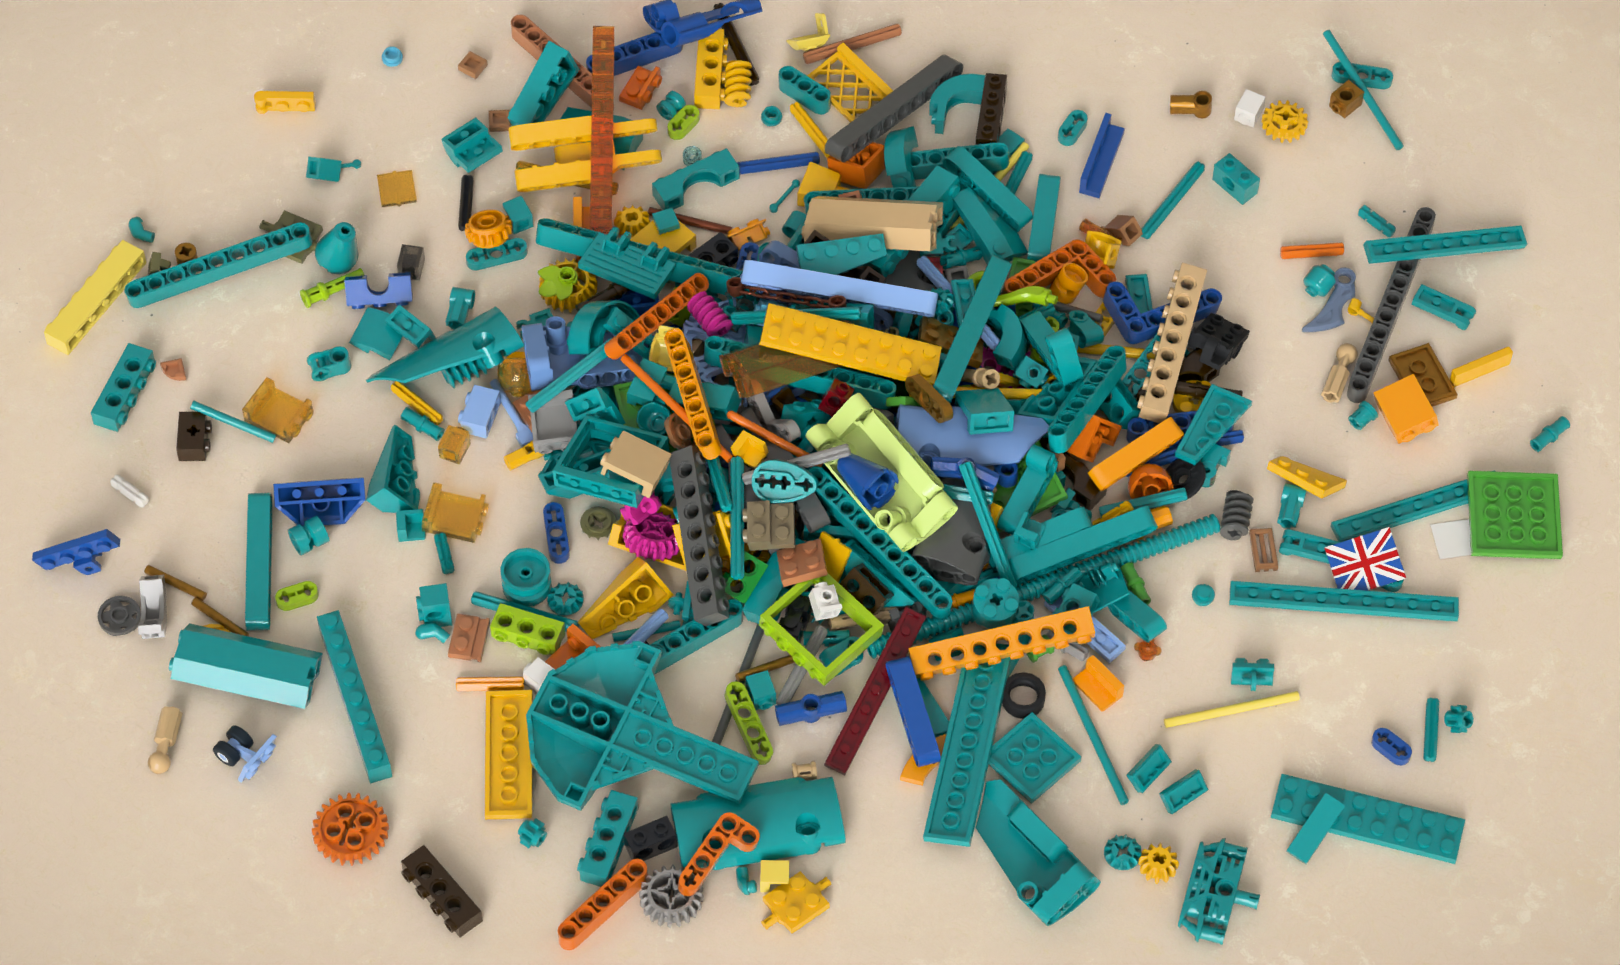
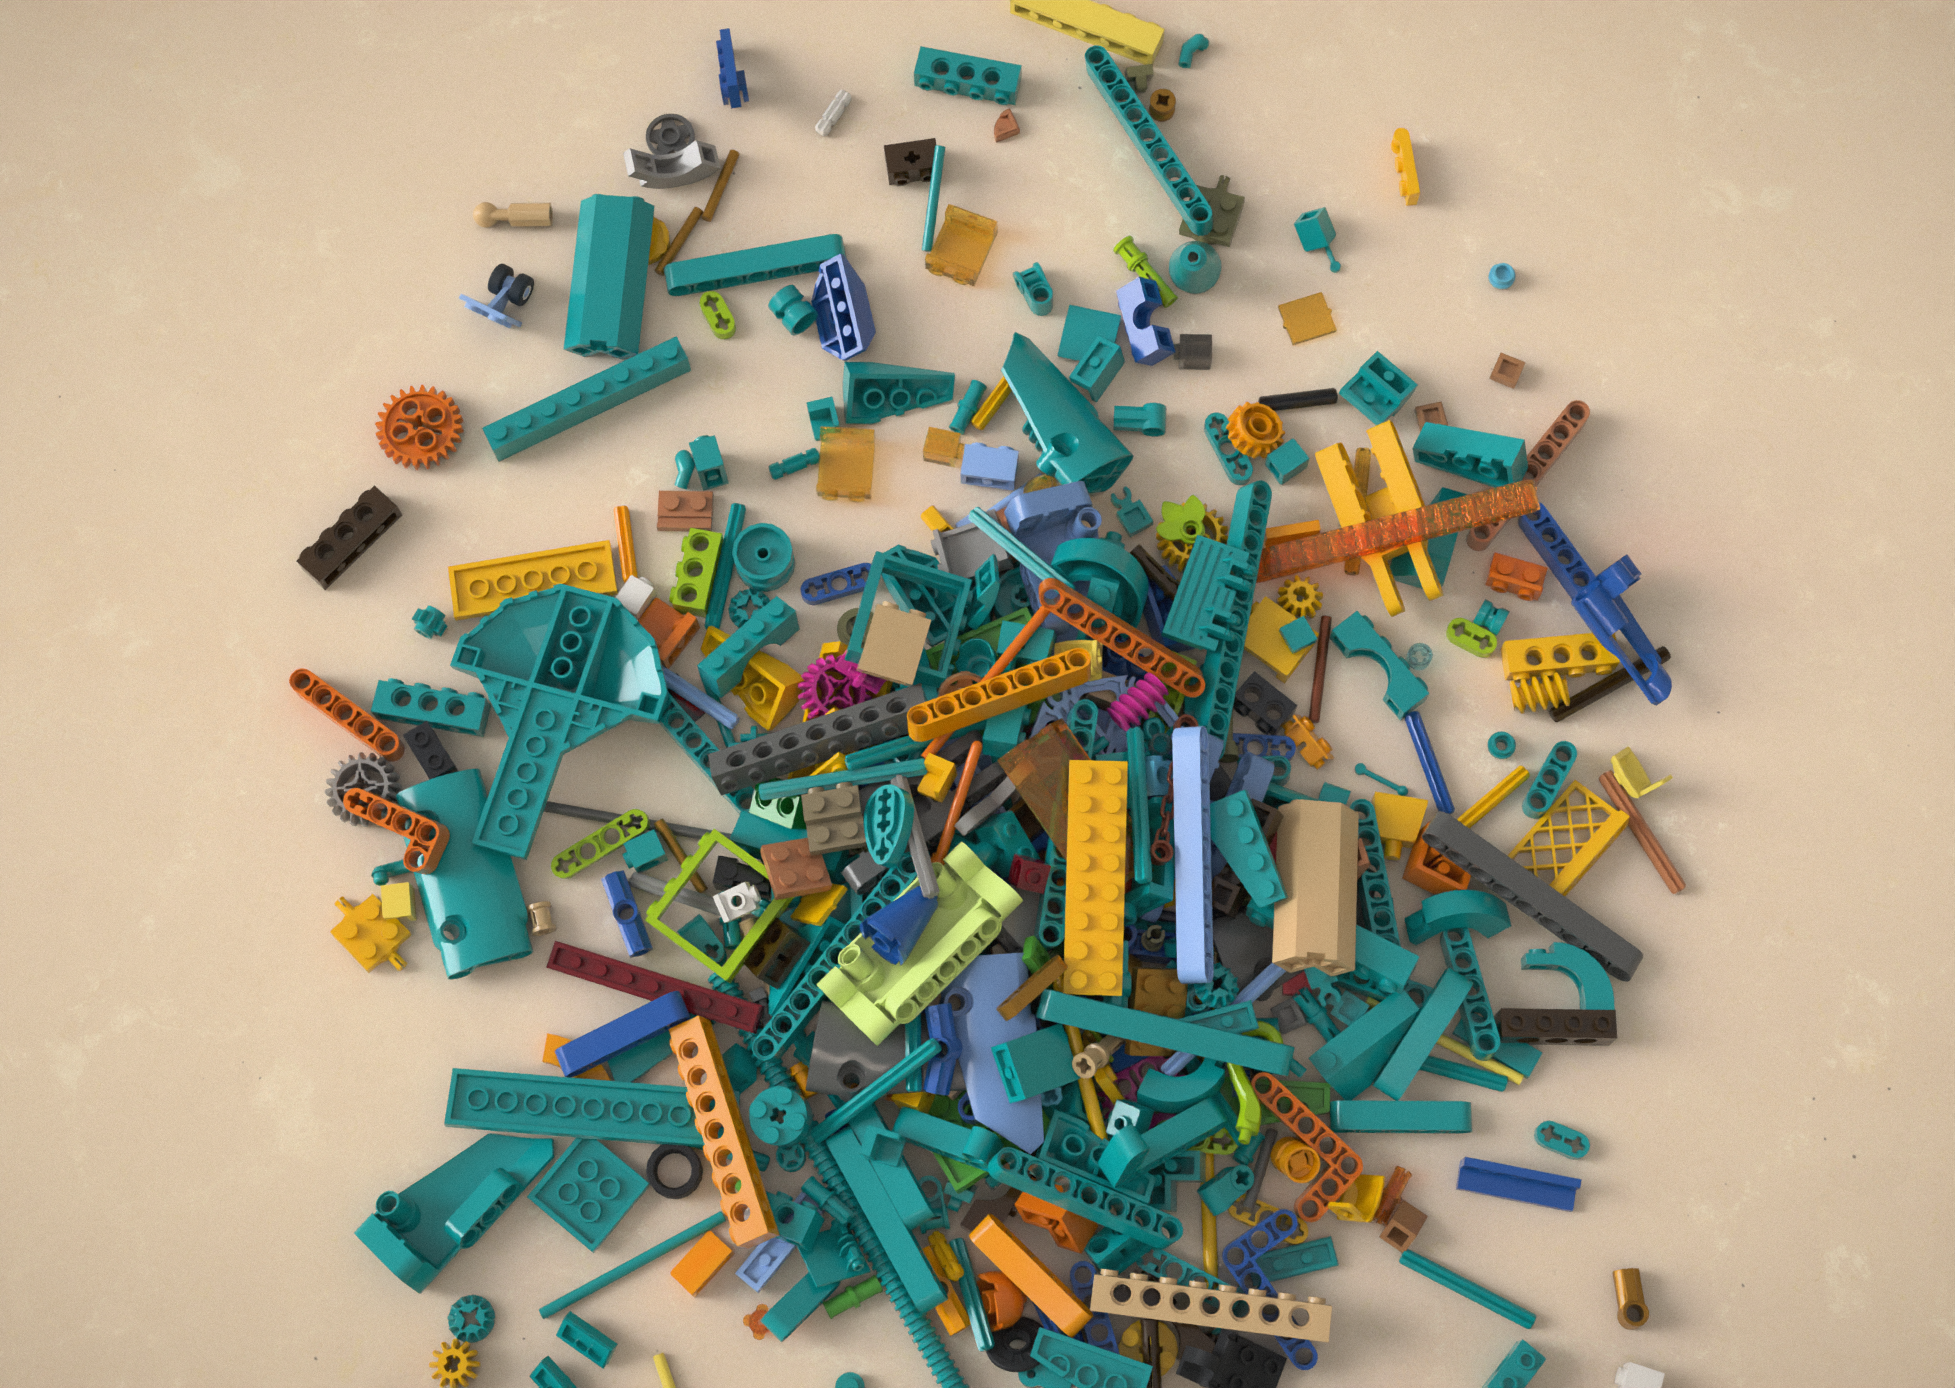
camera: 85 degrees right, 15 degrees up
(603, 592) = (726, 664): none -> teal arch

